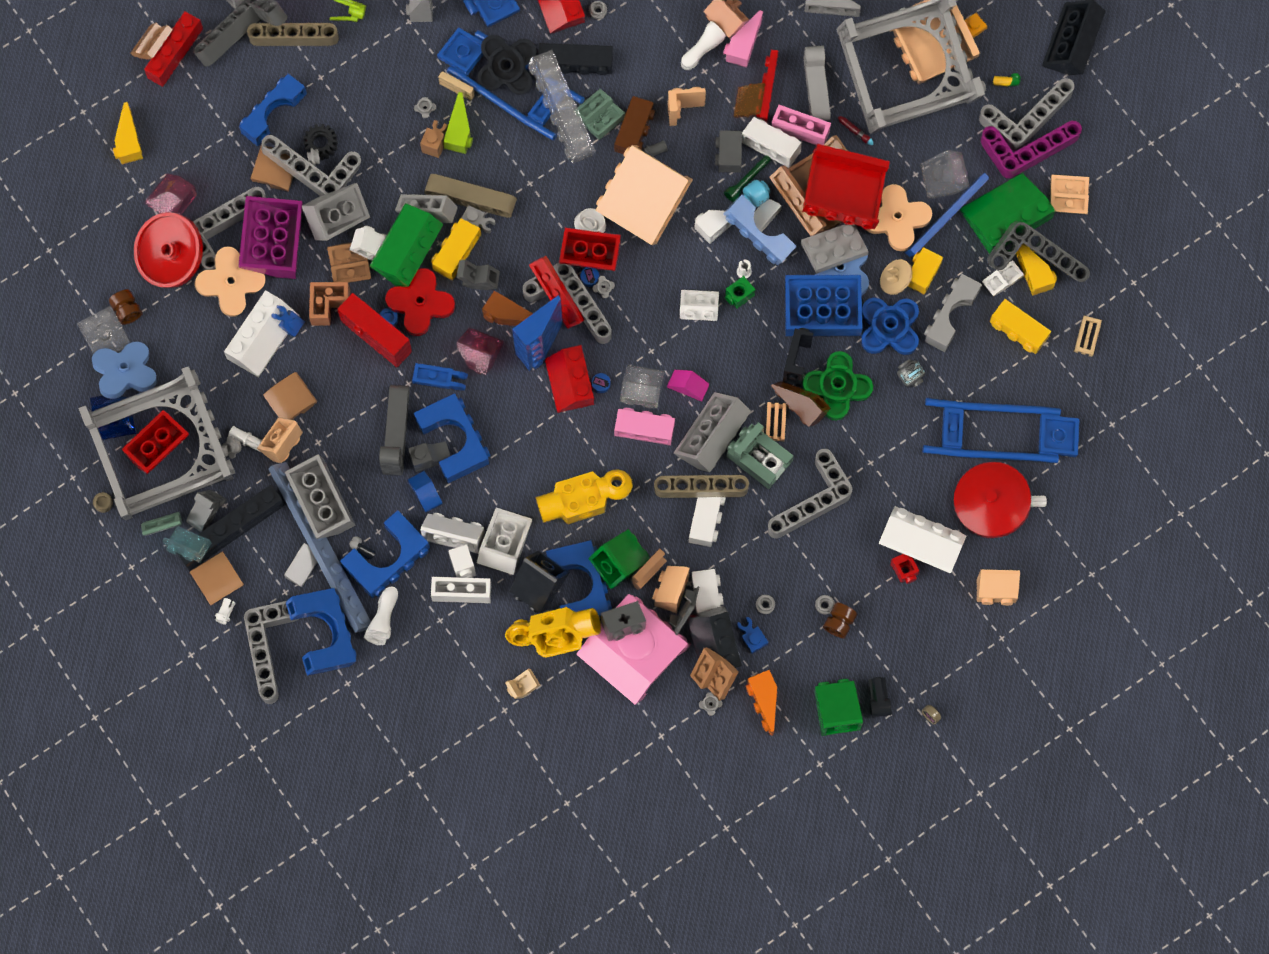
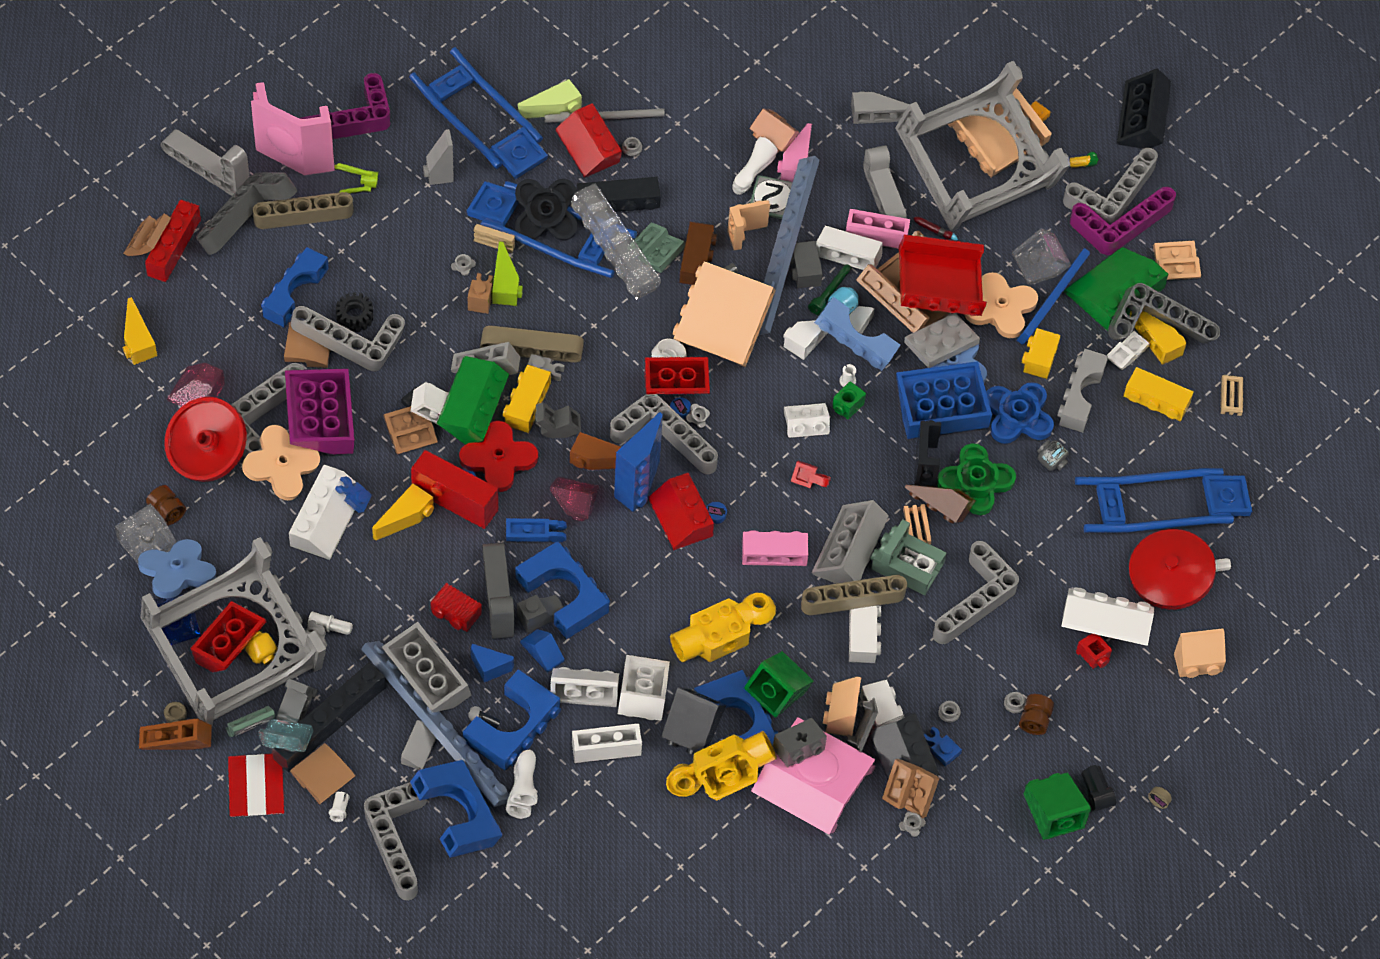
camera: 15 degrees left, 15 degrees down
(98, 525) = (176, 735): none -> dark orange slope
(159, 579) = (255, 785): none -> red sticker
(184, 454) = (261, 648): none -> yellow head
(280, 440) = (370, 615): light nougat slope -> none
(290, 397) = (371, 574): medium nougat slope -> none
(313, 156) = (352, 323): light grey plate -> none
(323, 298) = (391, 465): nougat brick -> none
(330, 343) = (405, 512): none -> yellow slope
(335, 212) = (386, 377): light grey slope -> none
(356, 441) = (456, 607): none -> red brick
(377, 498) = (490, 662): none -> blue slope
(462, 562) = (602, 710): white brick -> none
(522, 684) = (697, 833): tan bracket -> none
(553, 287) = (642, 413): red plate -> none
(642, 386) = (763, 509): clear slope -> none
(649, 569) = (813, 690): medium nougat slope -> none
(688, 360) = (806, 475): none -> plate
(688, 384) = (813, 499): dark pink slope -> none
(715, 78) = (775, 191): none -> slope
(717, 123) = (788, 234): none -> sand blue plate
(749, 100) = (817, 212): clear orange piece -> none
(765, 694) = (971, 804): orange slope -> none
(768, 80) = (831, 191): red plate -> none
(896, 277) = (1014, 362): tan piece -> none

